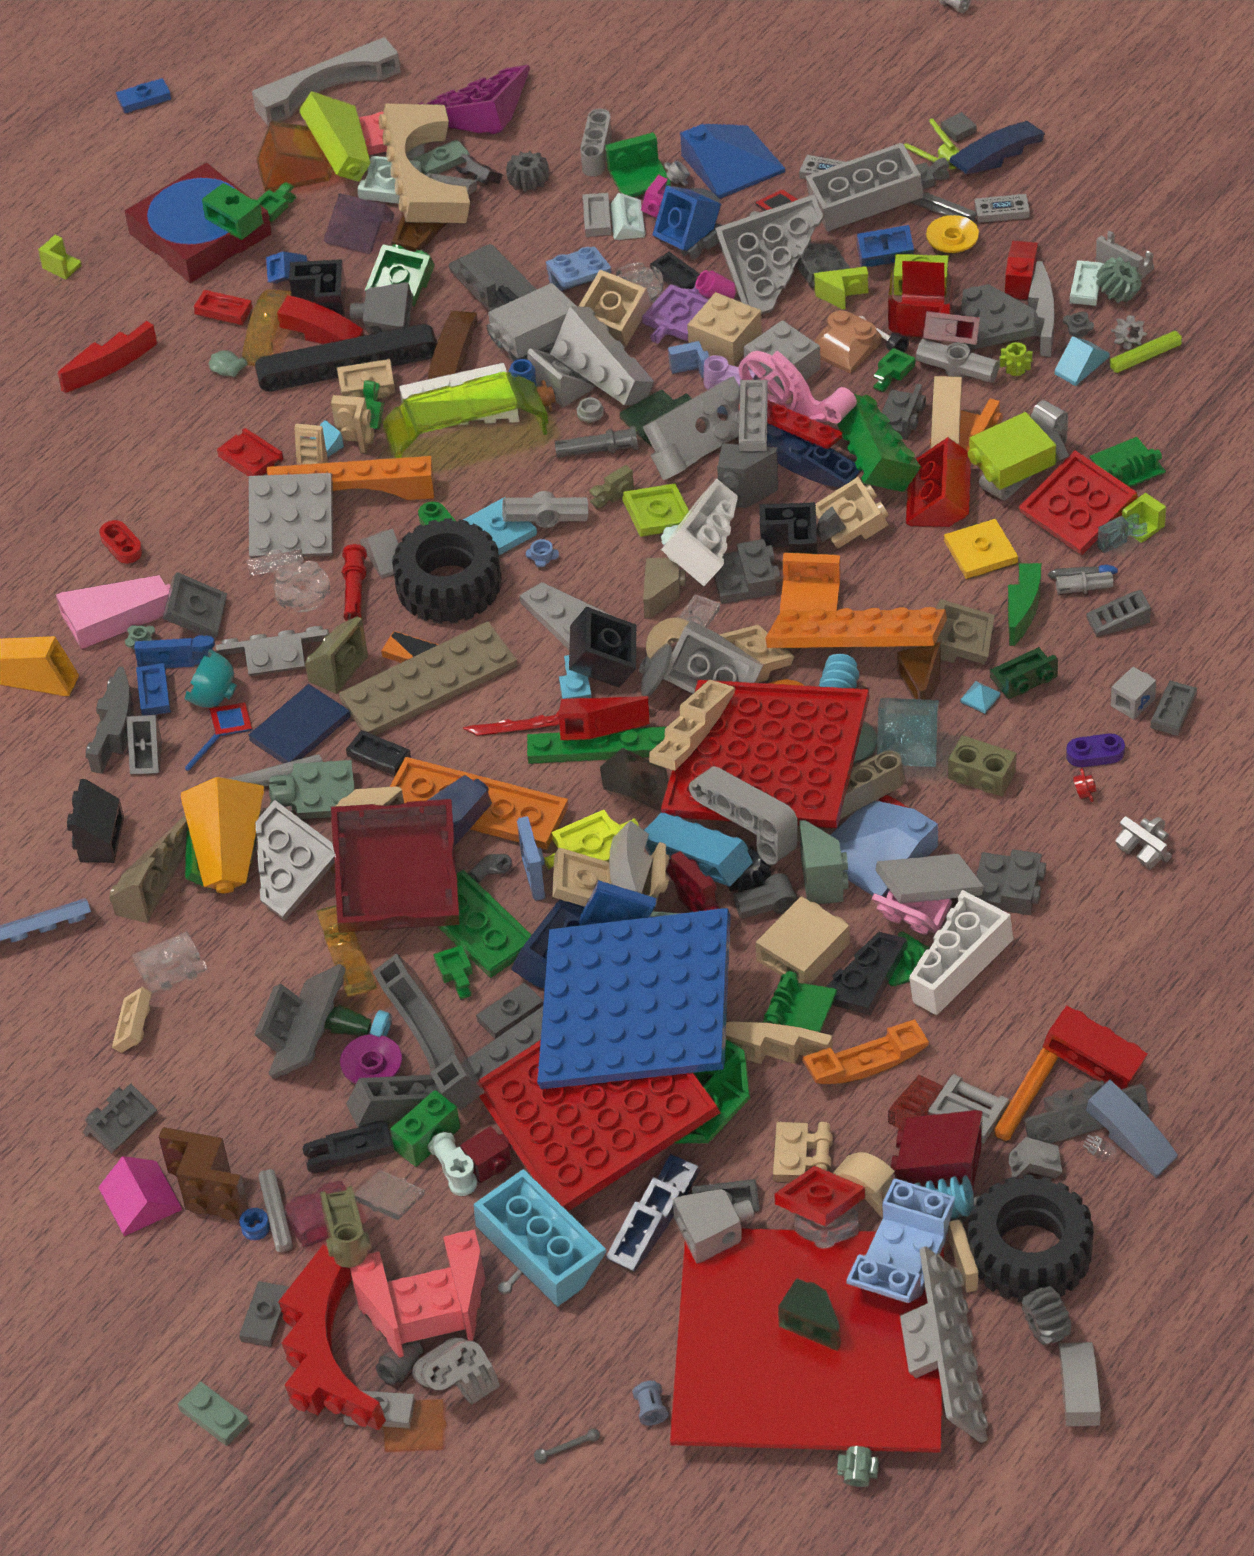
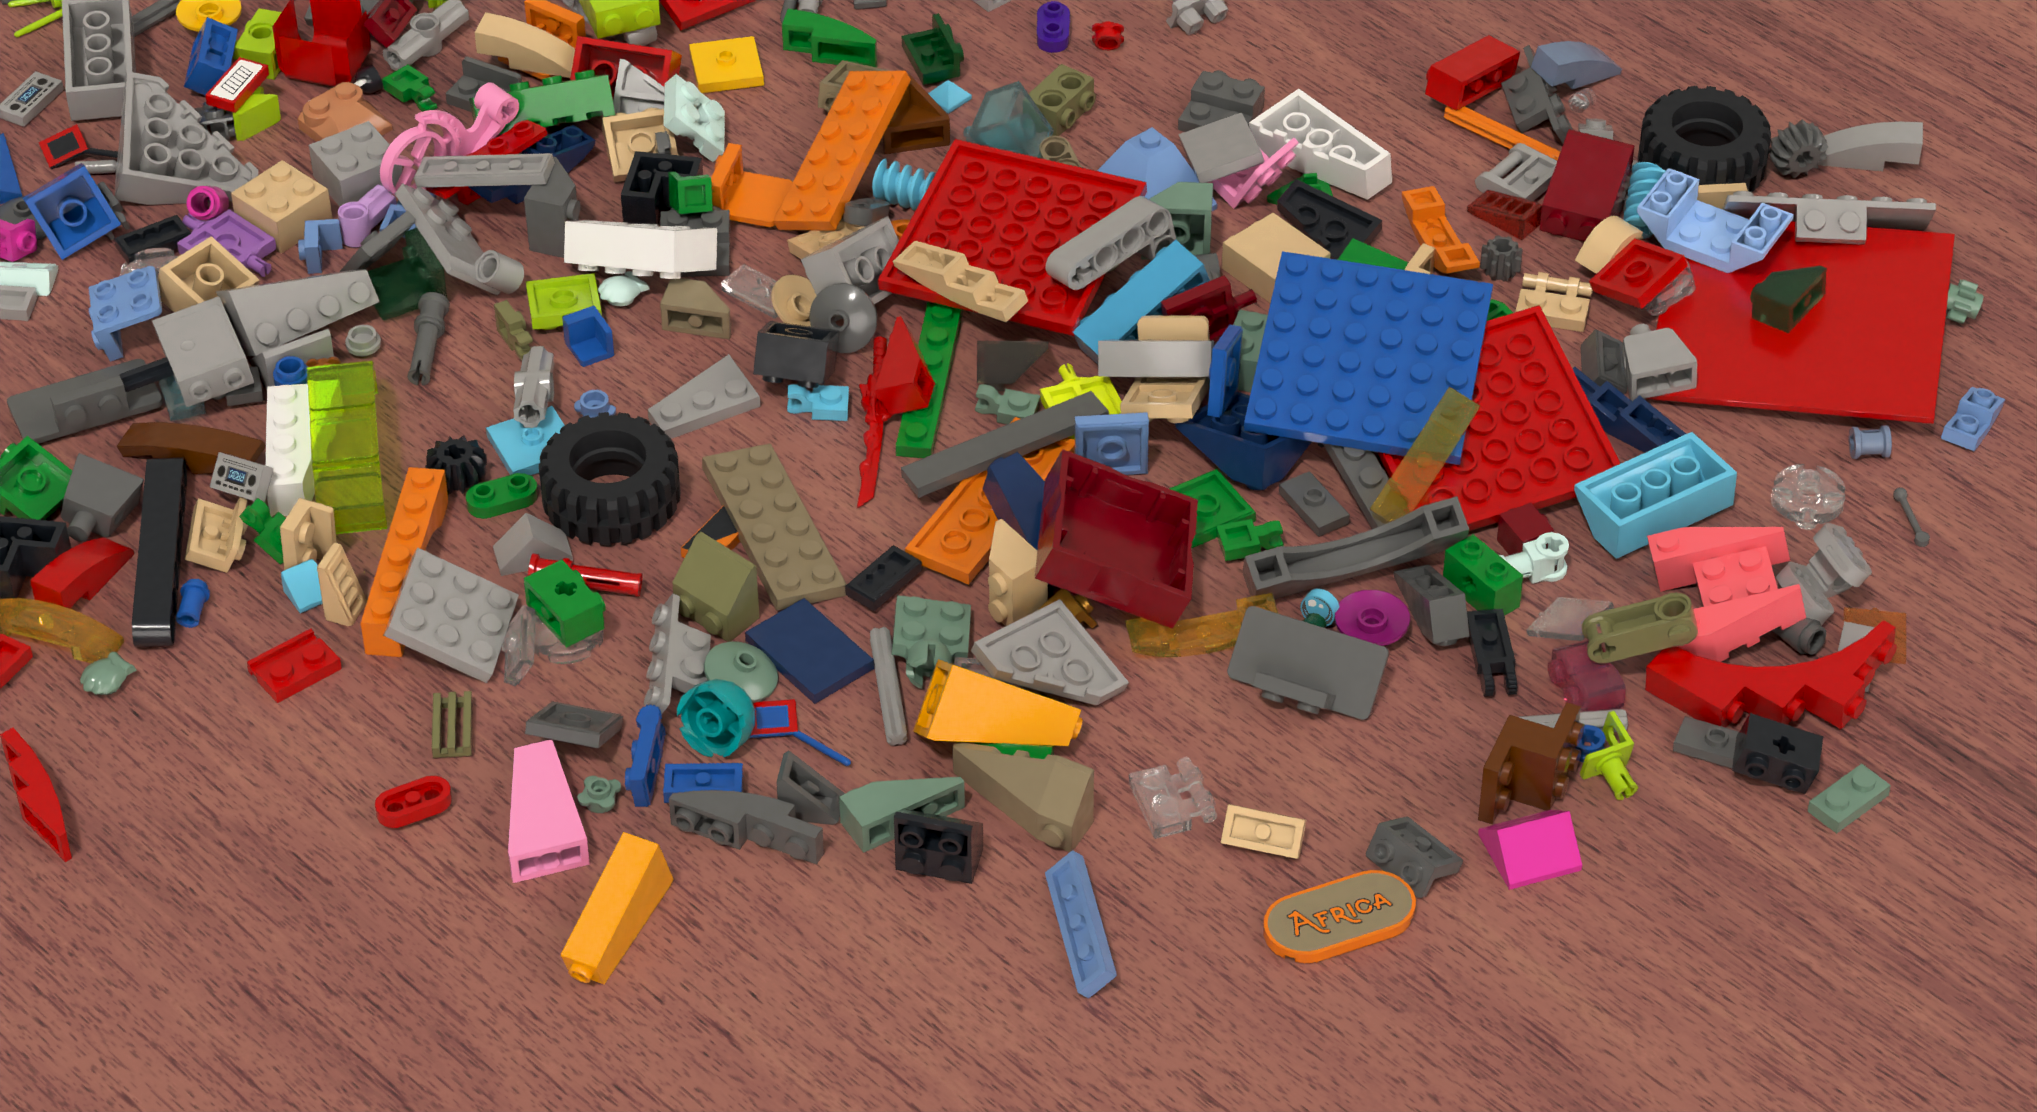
camera: 85 degrees left, 5 degrees down
(56, 1081) = (1339, 916): none -> dark tan tile
(132, 789) = (870, 810): none -> sand green slope
(204, 545) = (452, 702): none -> olive tile
(224, 1238) = (1613, 759): none -> lime bracket
(246, 1364) = (1777, 753): none -> black brick
(266, 701) = (744, 666): none -> sand green dish
(300, 387) = (194, 595): none -> blue pin
(303, 569) = (565, 603): none -> green brick
(407, 373) = (241, 477): none -> light grey tile
(458, 488) = (461, 460): none -> black gear
(517, 1056) = (1426, 456): none -> clear yellow slope
(526, 794) = (1019, 436): none -> dark grey tile
(574, 1377) = (1808, 510): none -> clear plate
(591, 798) = (1006, 406): none -> sand green plate
(620, 534) = (588, 336): none -> blue panel
(676, 385) = (380, 243): none -> dark grey plate
(705, 1490) = (1973, 418): none -> medium blue slope
(768, 544) = (690, 193): none -> green panel
(796, 663) = (865, 211): none -> dark grey beam
(842, 1103) = (1501, 258): none -> dark grey gear
(843, 264) = (237, 84): none -> tile
(897, 548) = (694, 116): none -> light aqua brick
(904, 502) = (636, 90): none -> light grey wing

